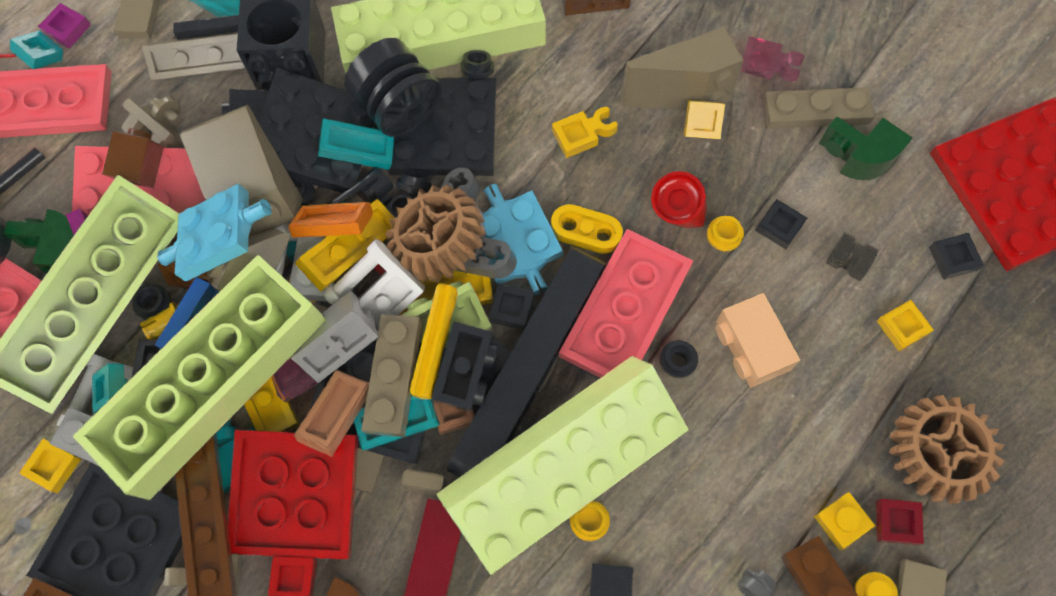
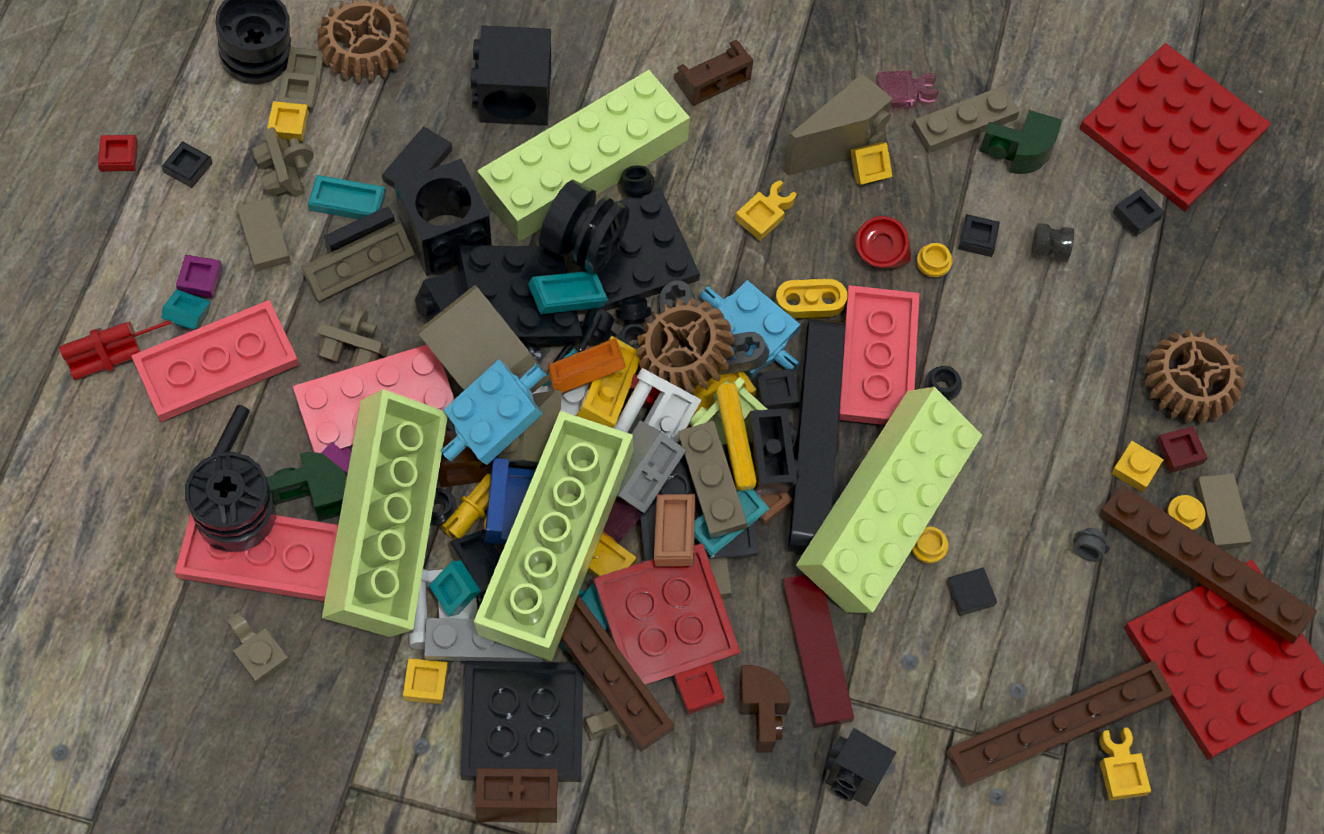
camera: 30 degrees left, 5 degrees down
(133, 157) = (368, 371): reddish brown brick -> none
(423, 482) = (775, 565): dark tan tile -> none
(756, 340) = (1003, 343): light nougat brick -> none
(905, 325) = (1120, 287): yellow tile -> none

